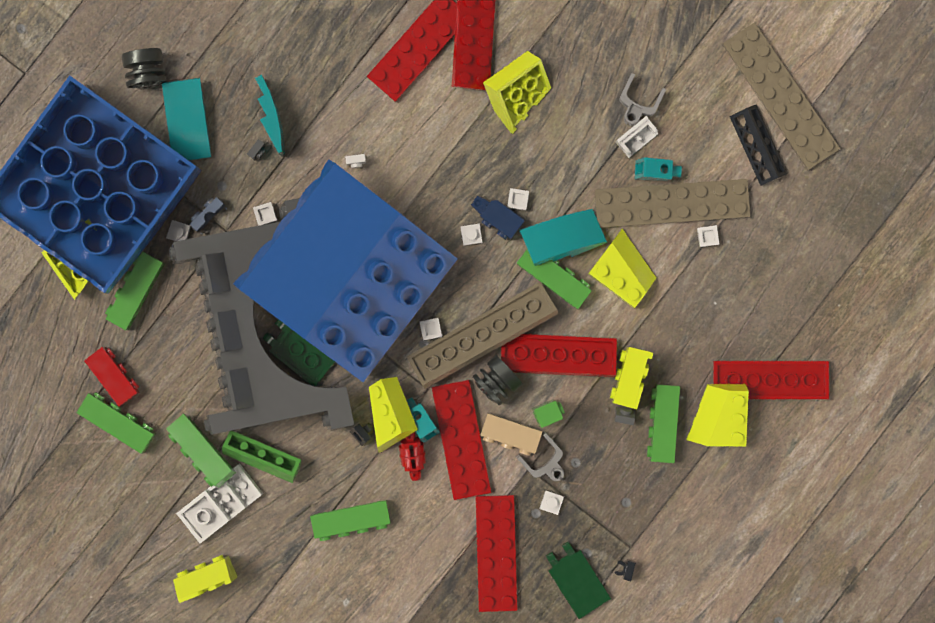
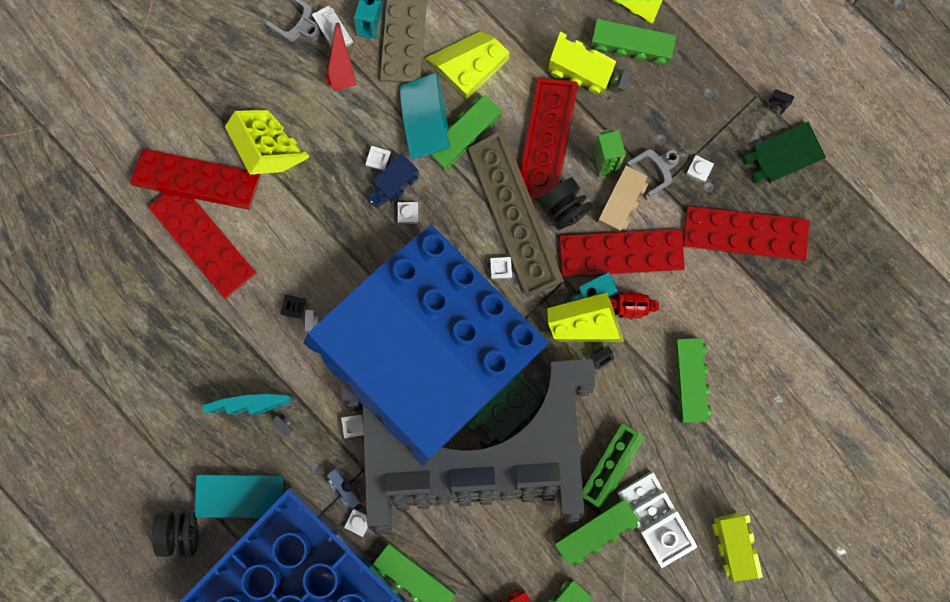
camera: 70 degrees left, 5 degrees down
(368, 141) = (293, 306): none -> black tile
(601, 149) = (339, 66): none -> red slope

